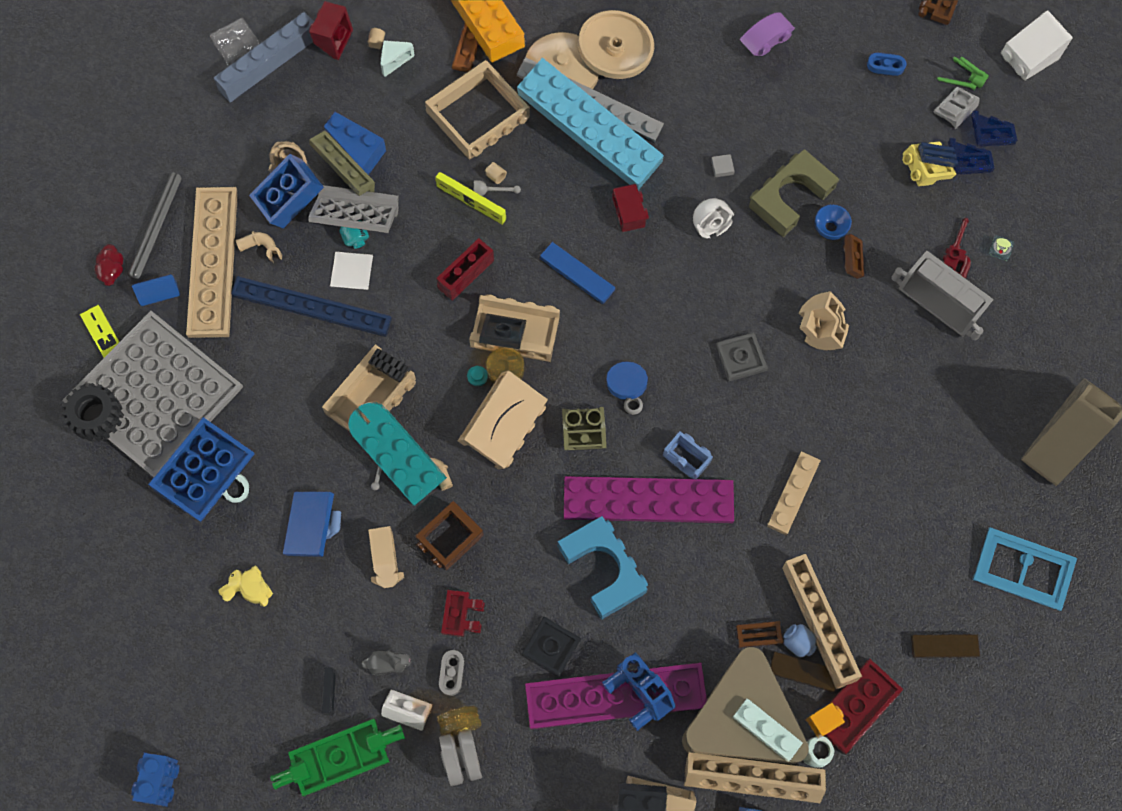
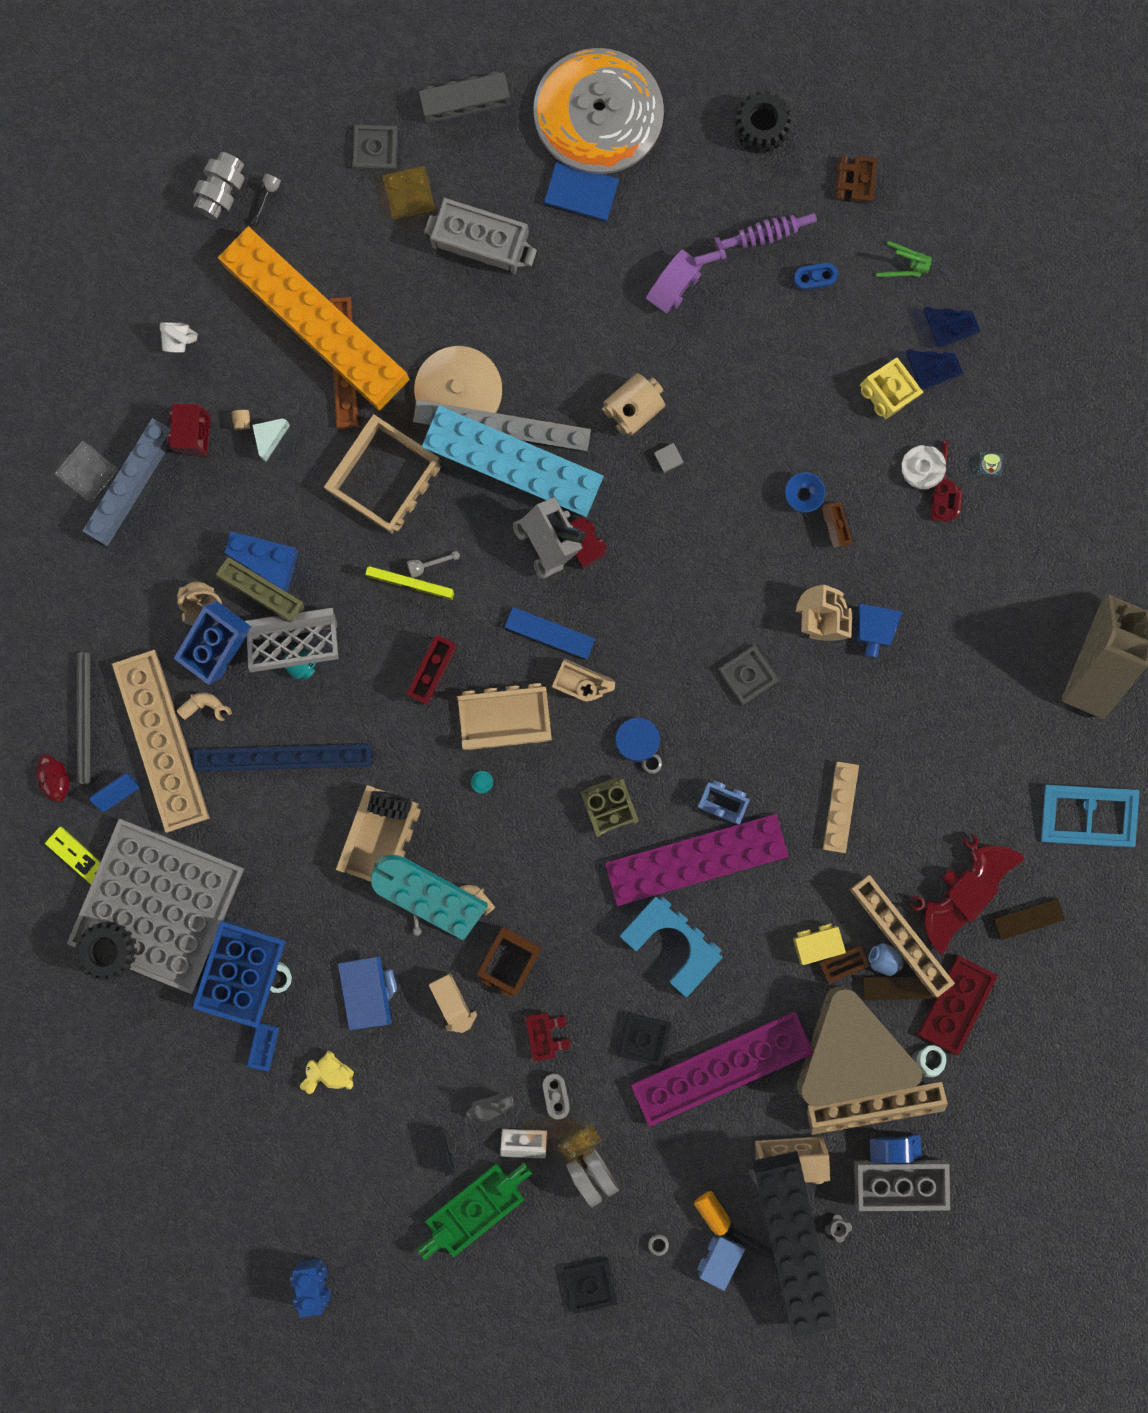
camera: 15 degrees left, 15 degrees up
(199, 544) = (263, 1047): none -> blue plate
(351, 270) = (310, 703): white sticker -> none
(495, 173) = (426, 544): tan hose -> none
(502, 331) = (494, 729): black tile -> none
(504, 360) = (508, 764): clear yellow head -> none
(504, 419) = (525, 826): tan panel -> none
(586, 311) = (574, 676): none -> tan piece
(603, 186) = (550, 535): none -> light grey piece
(616, 44) = (510, 348): tan dish -> none
(640, 683) = (745, 1053): blue piece -> none
(706, 112) = (641, 399): none -> tan cylinder
(712, 217) = (673, 526): white cylinder -> none
(740, 608) = (819, 944): none -> light yellow brick
(767, 730) = (878, 1067): light aqua plate -> none
(802, 170) = (756, 438): olive arch -> none
(825, 720) = (930, 1032): light orange brick -> none
(855, 20) = (751, 236): none -> medium lavender piece
(866, 348) = (876, 627): none -> blue torso
(892, 602) = (967, 892): none -> dark red torso
(935, 152) = (912, 374): dark blue tile -> none
(941, 232) = (923, 467): none -> white tile
(944, 294) = (943, 544): light grey container -> none
(953, 113) = (902, 315): light grey piece -> none
(1036, 46) = (976, 206): white slope -> none

